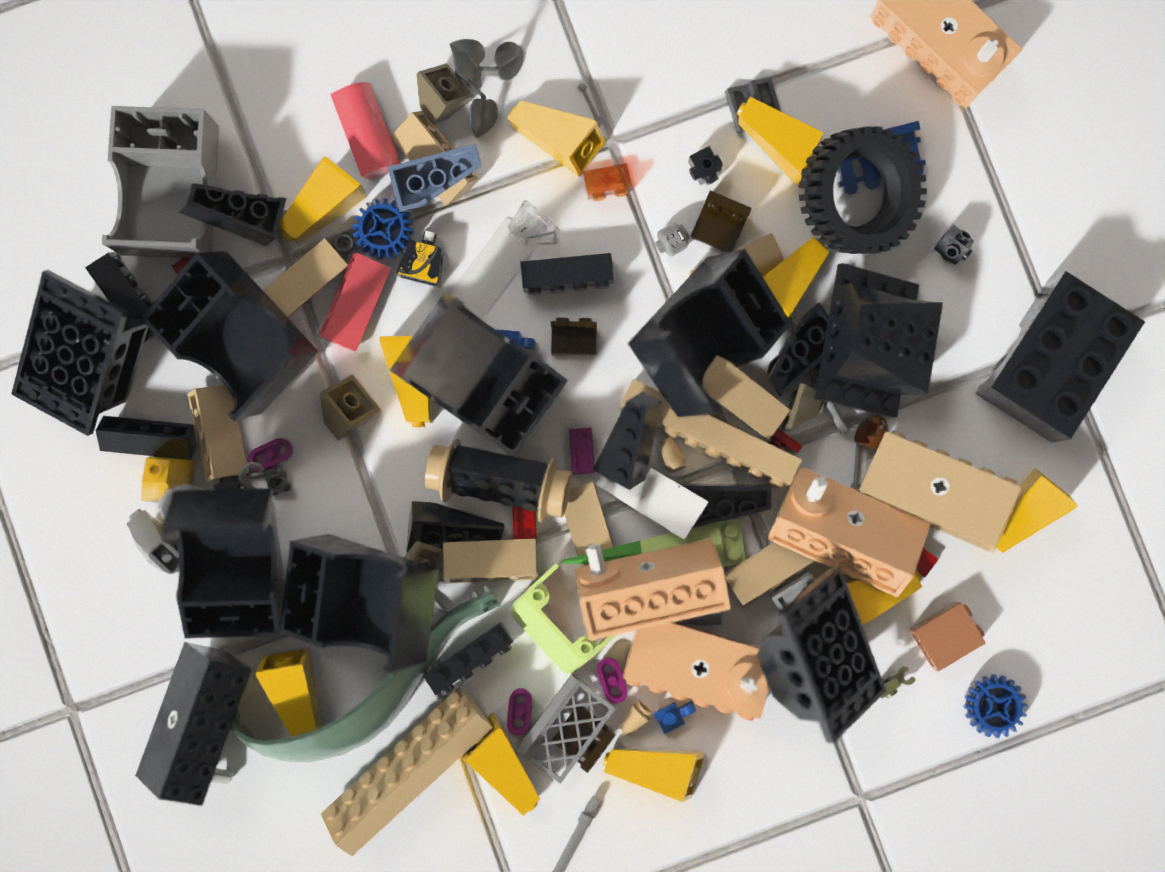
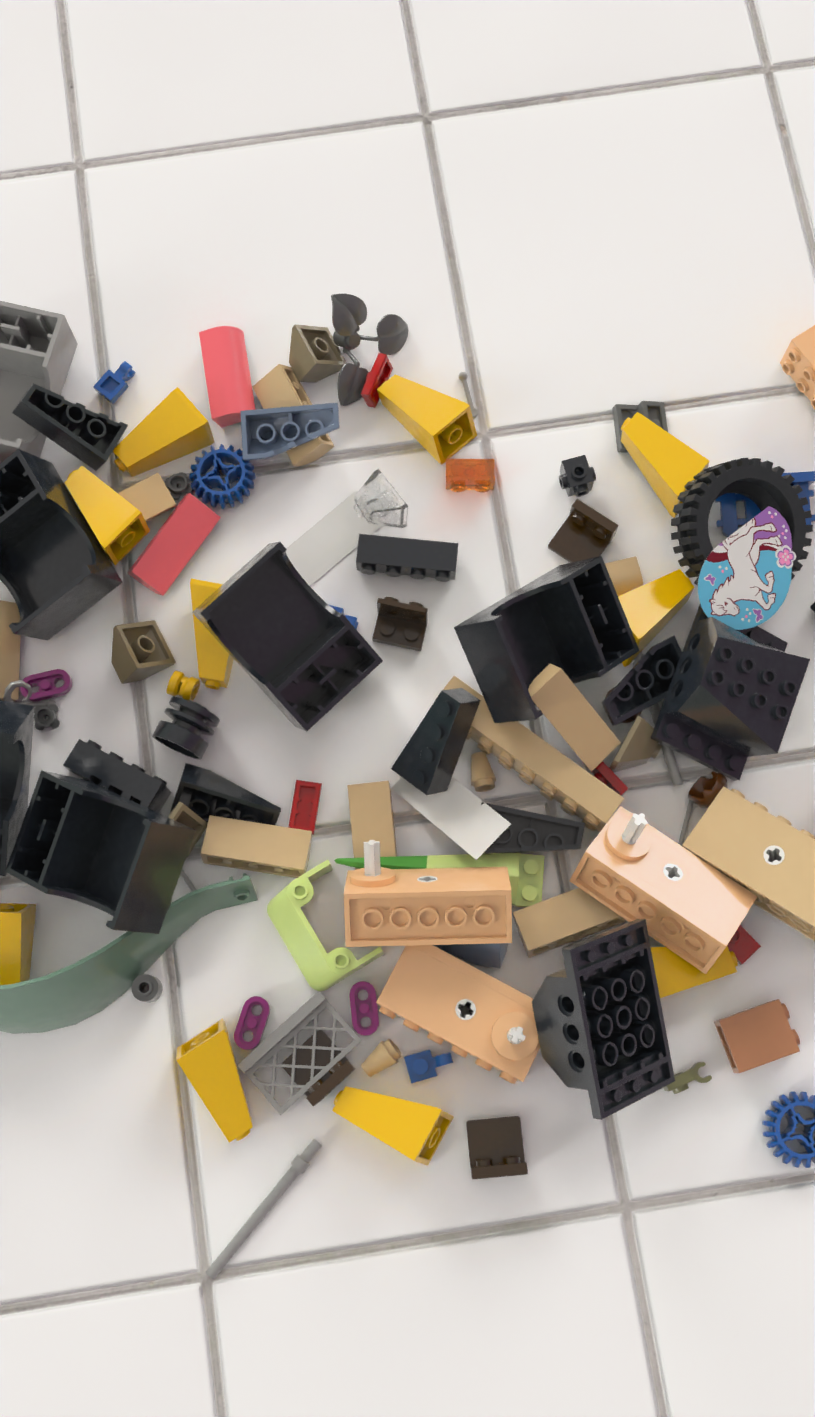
camera: 10 degrees right, 10 degrees down
(261, 159) = (112, 384): none -> blue plate
(291, 292) = (110, 516): none -> yellow slope
(354, 525) = (112, 773): none -> black wedge
(393, 431) = (183, 686): none -> yellow wheel
(404, 469) = (188, 724): none -> black wheel
(405, 771) = (106, 1062): tan brick -> none
(422, 261) = (255, 517): torso -> none
(430, 699) = (155, 988): none -> dark grey brick
(468, 658) = (208, 949): black brick -> none
(498, 479) = (285, 755): black brick -> none
(503, 107) = (375, 378): none -> red plate
(581, 451) = (383, 748): magenta plate -> none
(672, 239) = (527, 544): light grey head -> none
(746, 773) = (496, 1147): none -> dark brown bracket
(876, 232) = (748, 572): none -> sticker

